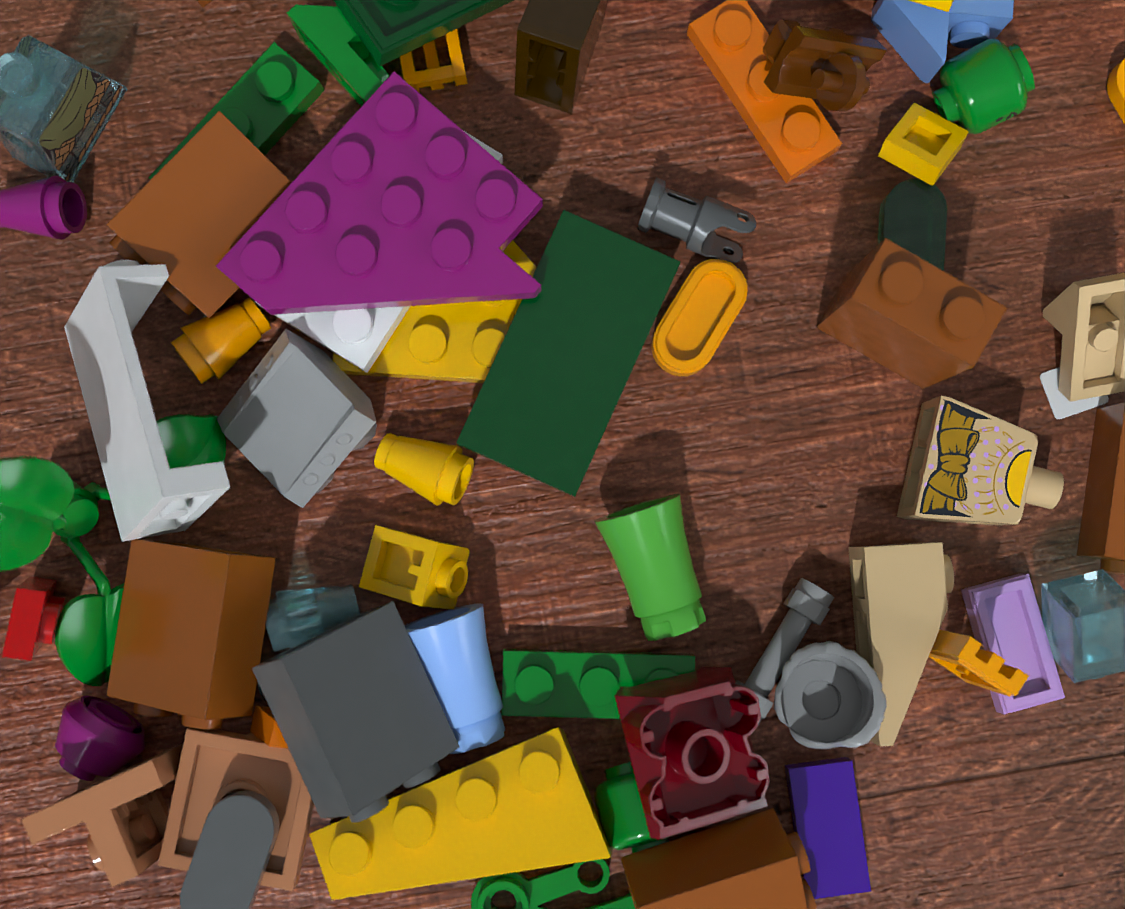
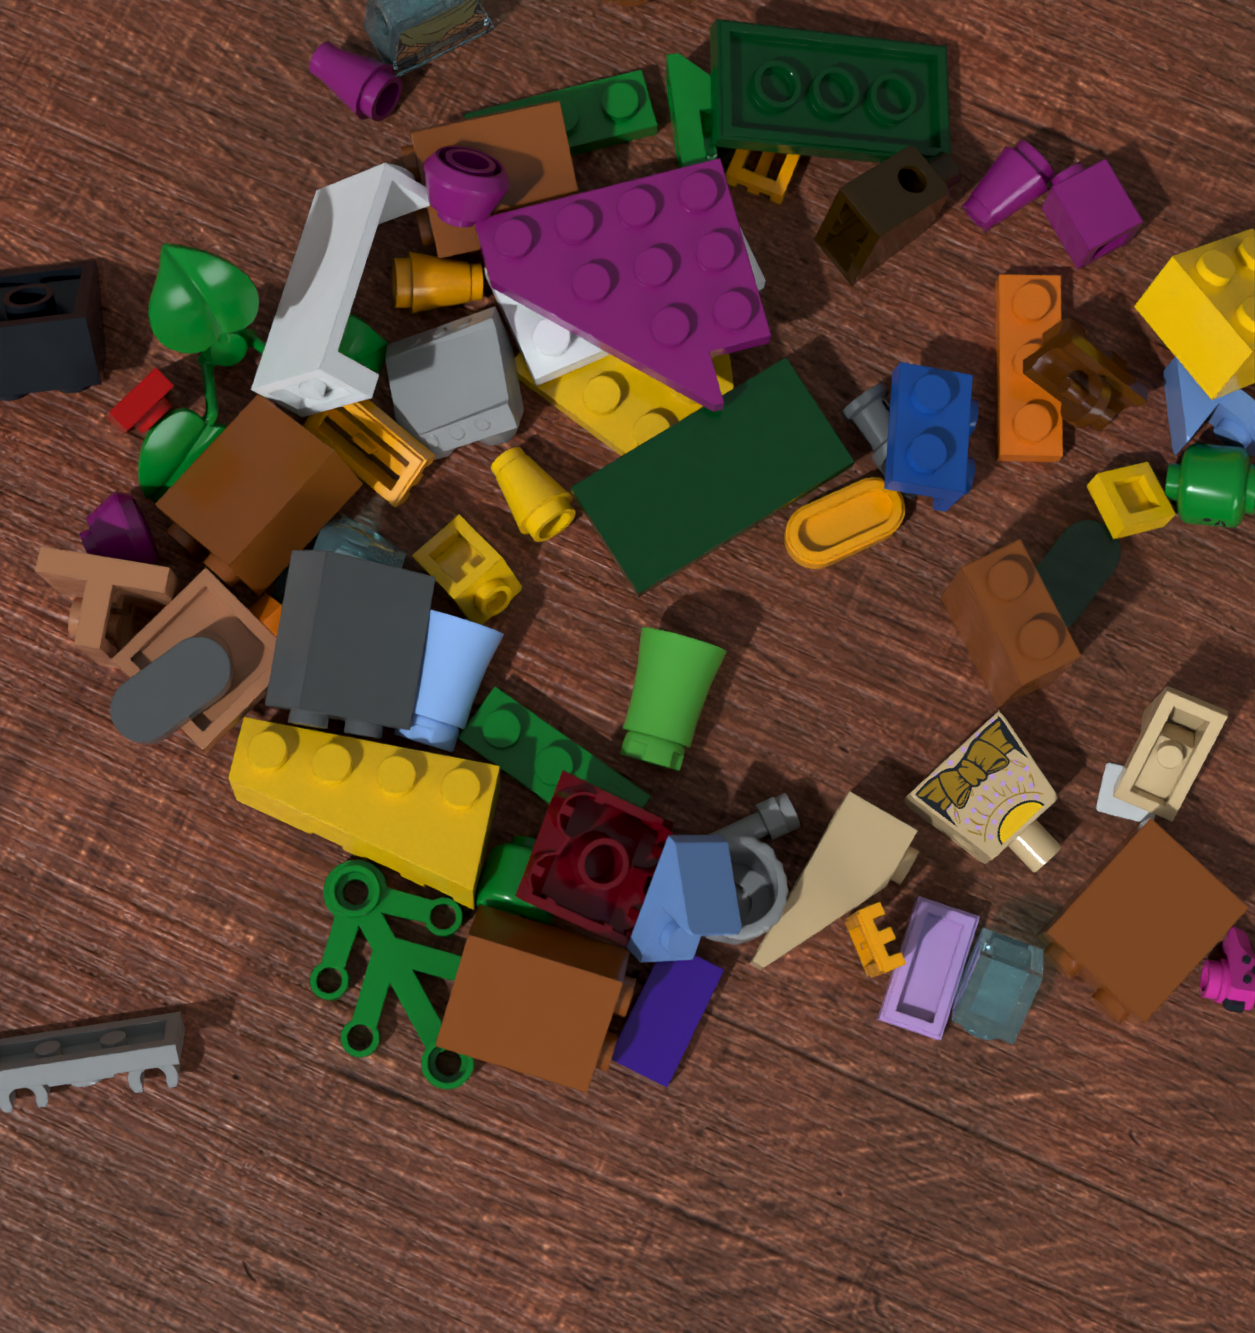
camera: 35 degrees right, 5 degrees down
(184, 240) = (464, 184): none -> magenta cone
(262, 502) = (389, 431): none -> light orange tile
(727, 195) = (930, 434): none -> blue bracket
(800, 738) = (686, 899): none -> medium blue slope

